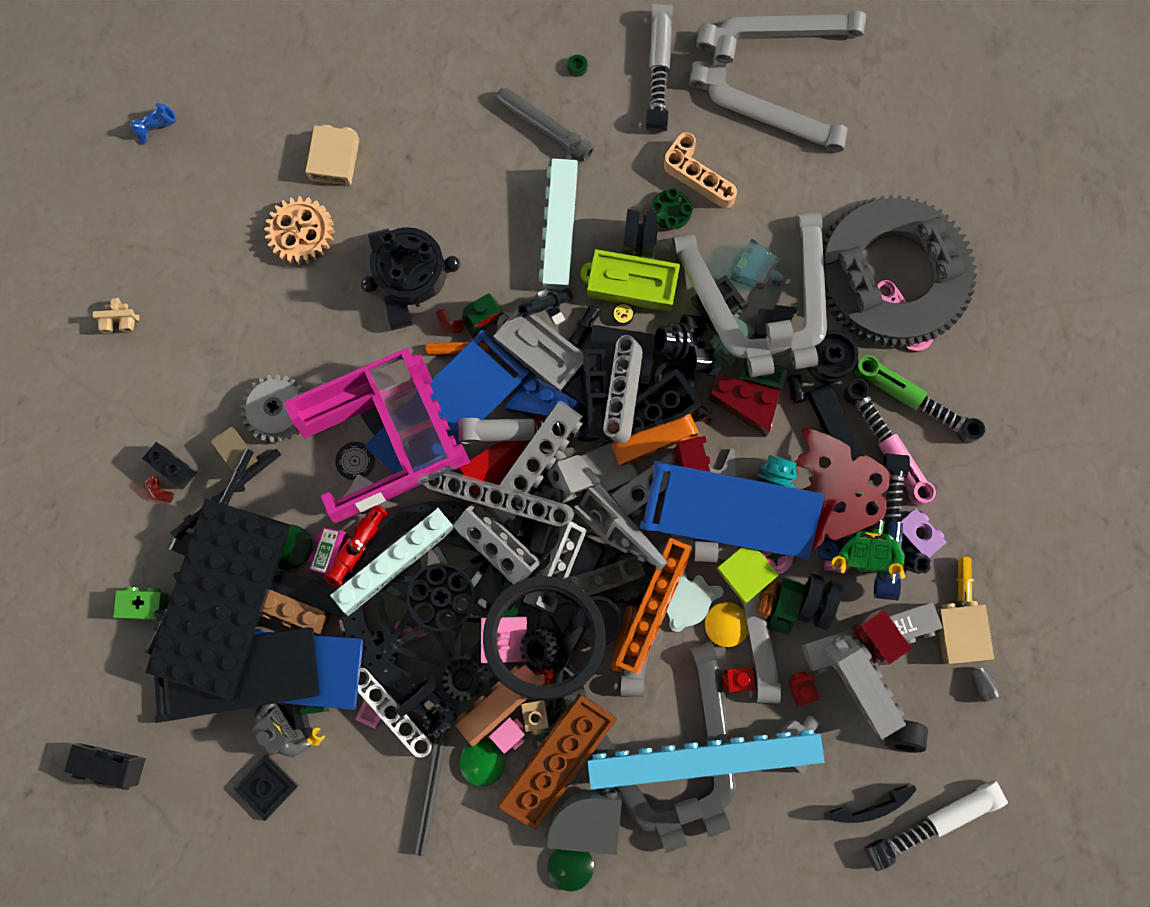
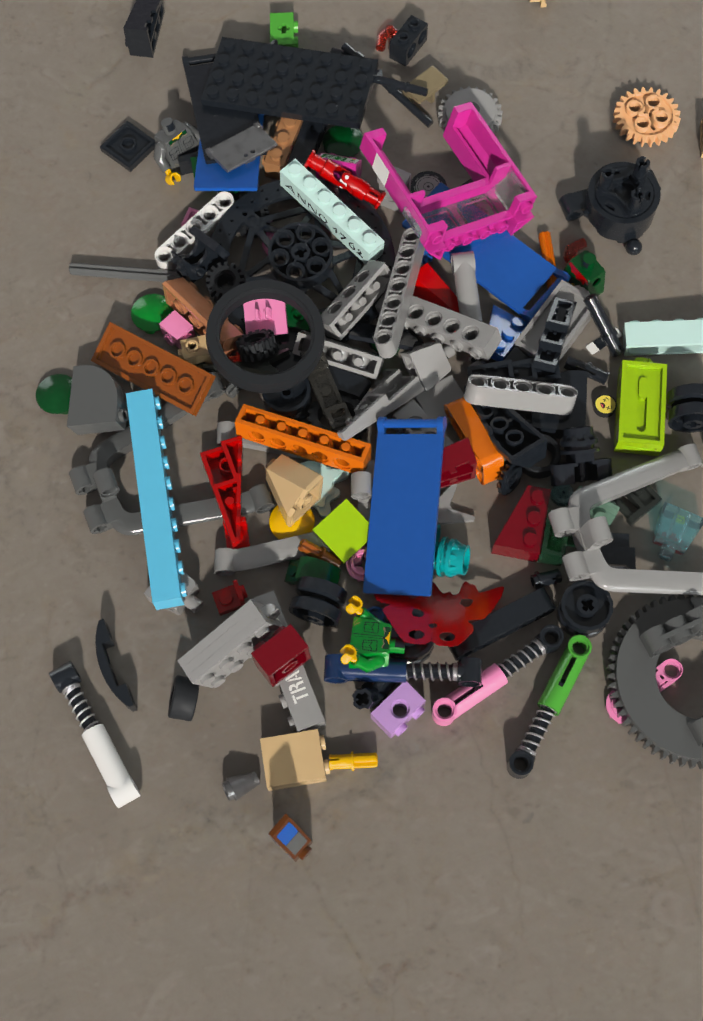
camera: 85 degrees right, 10 degrees down
(303, 656) = (241, 148): none -> flat silver door
(560, 349) = (554, 335): none -> black slope
(678, 688) = (224, 474): none -> red wedge
(701, 621) = (293, 487): none -> tan slope
(1040, 640) = (291, 838): none -> slope

